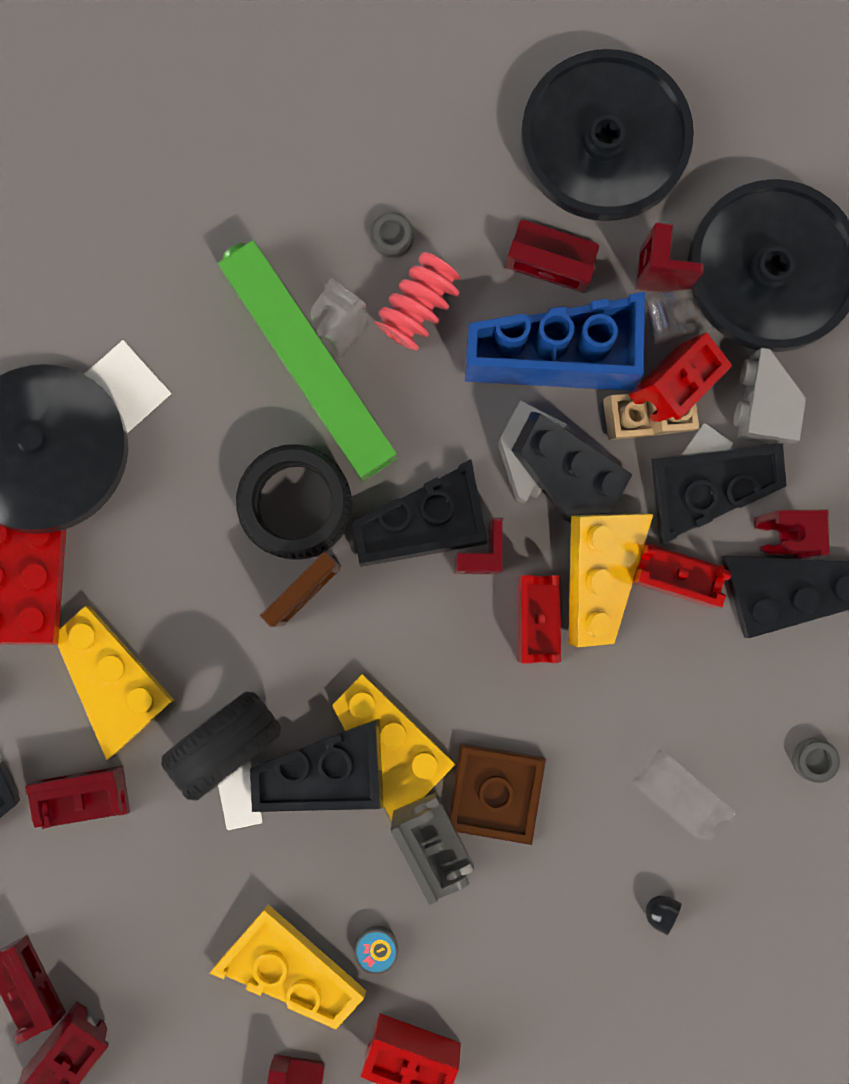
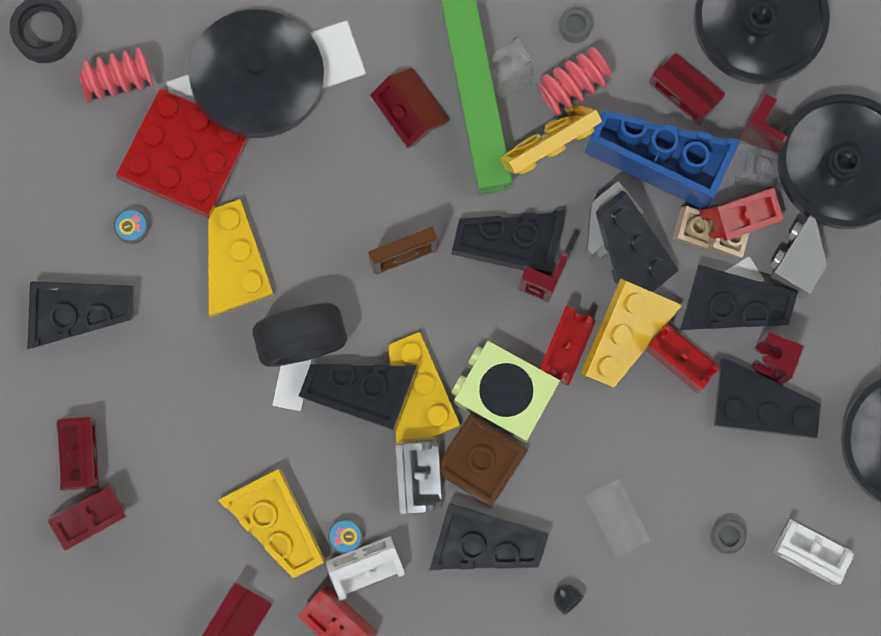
camera: 25 degrees right, 5 degrees down
(78, 797) = (177, 334): dark red hinge -> none
(237, 411) = (409, 106): none -> dark red panel
(262, 470) = (423, 152): black tyre -> none
(412, 979) = (364, 566): none -> white hinge
(444, 355) = (558, 133): none -> yellow wing
(491, 704) = (504, 391): none -> yellowish green brick
(540, 886) = (485, 541): none -> black wing

